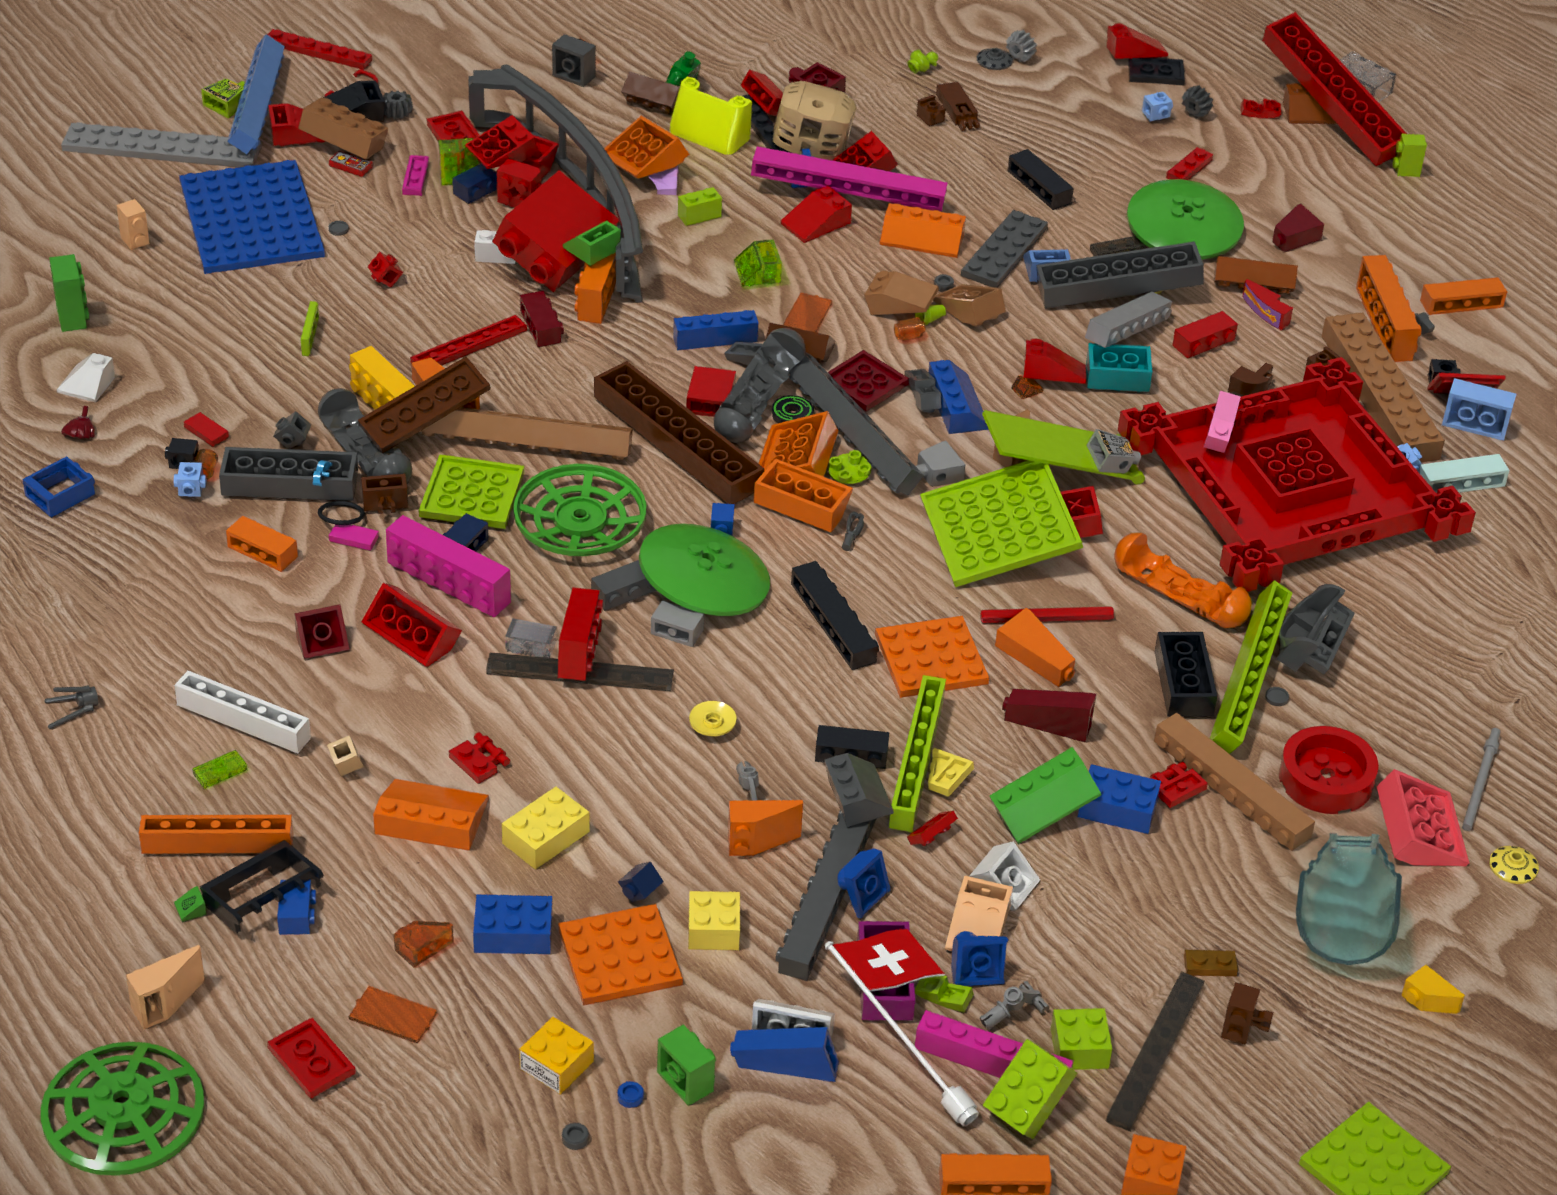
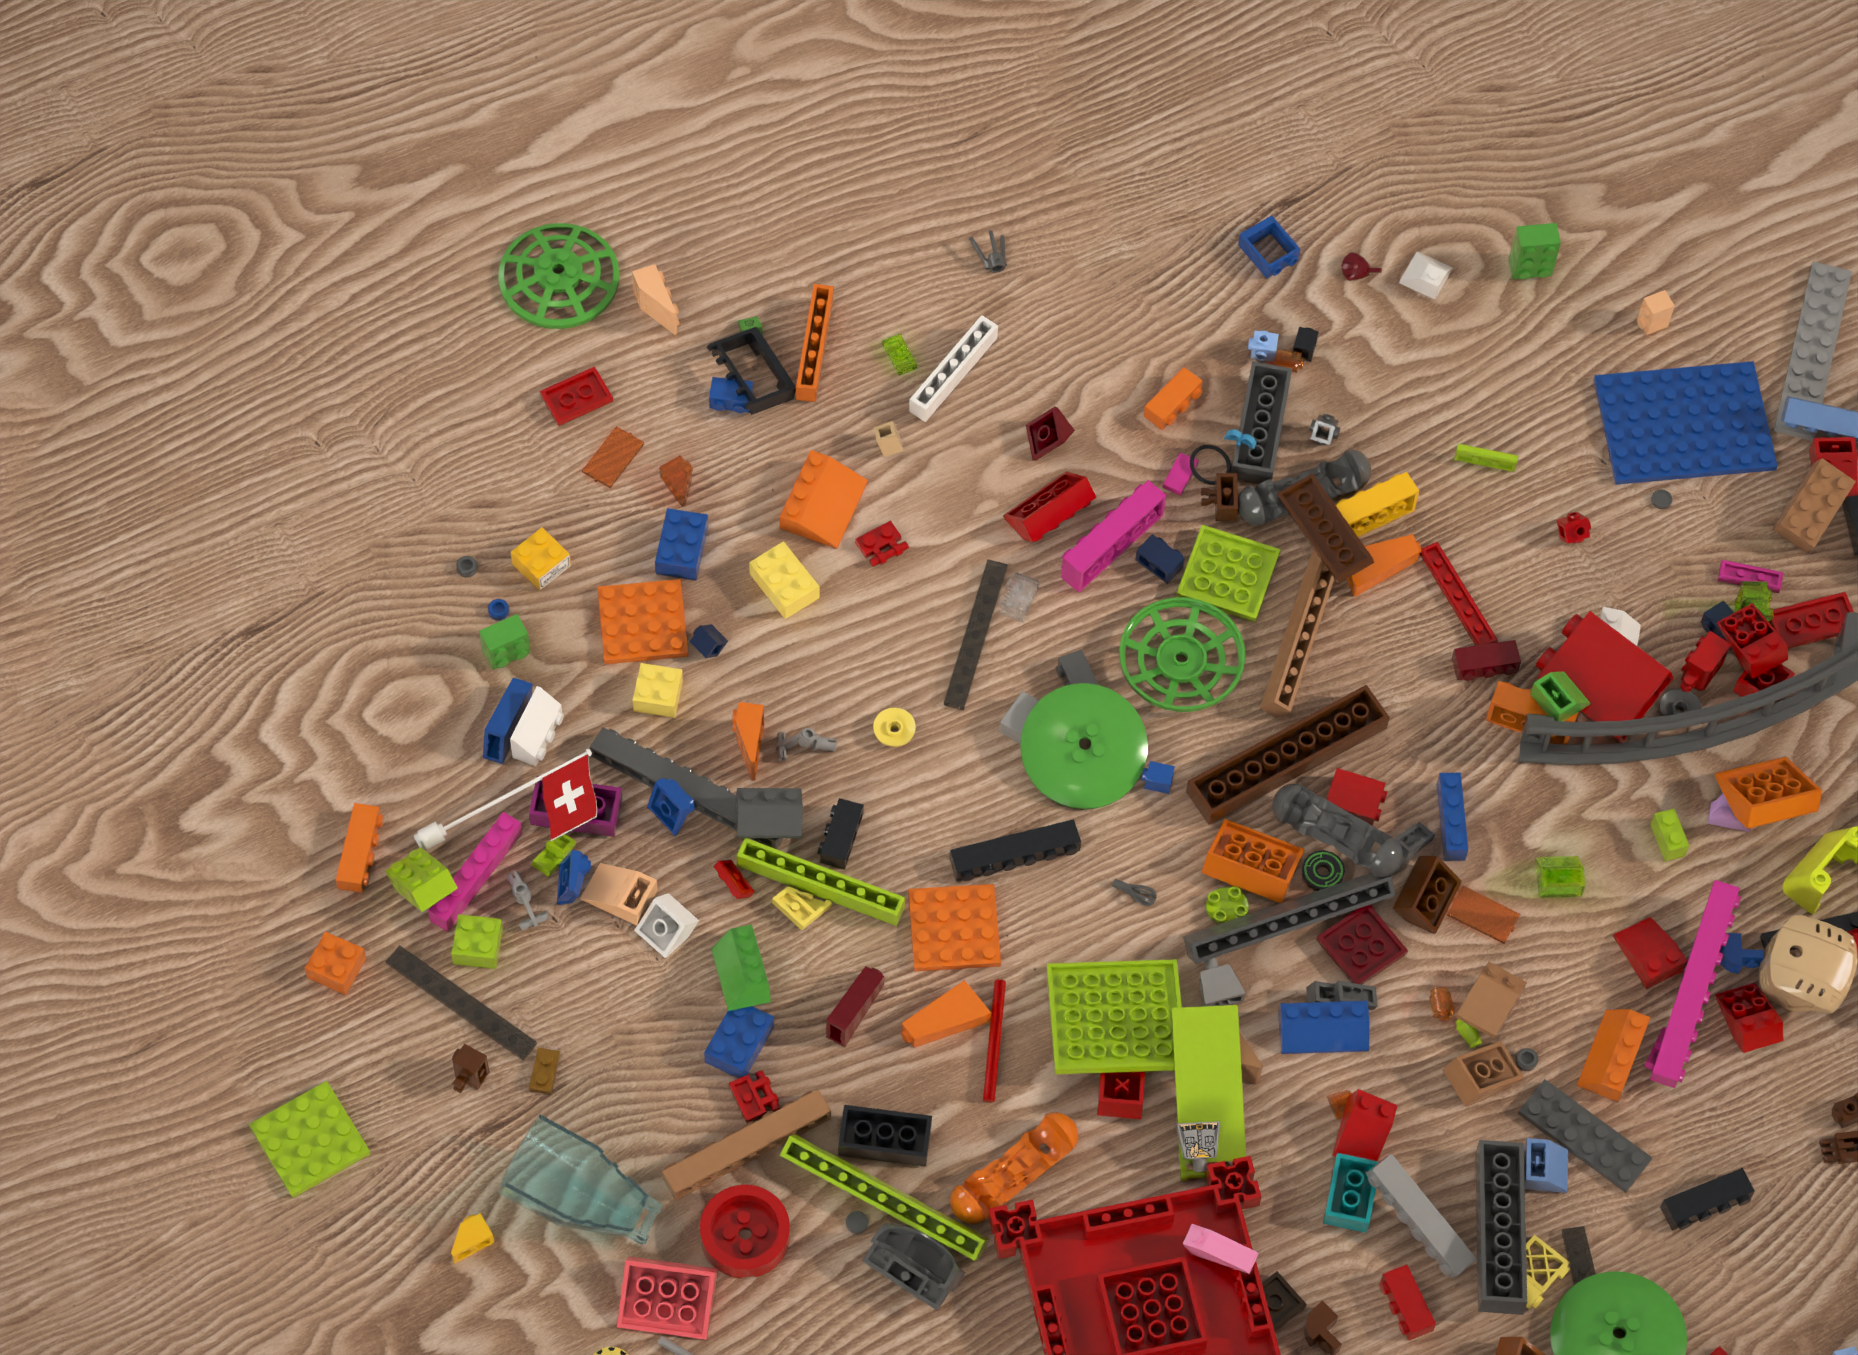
camera: 100 degrees right, 20 degrees up
(206, 429) = (1345, 366): red tile -> none
(350, 163) = (1770, 517): tile -> none
(580, 634) = (1003, 626): red brick -> none
(802, 495) = (1179, 847): orange slope -> none

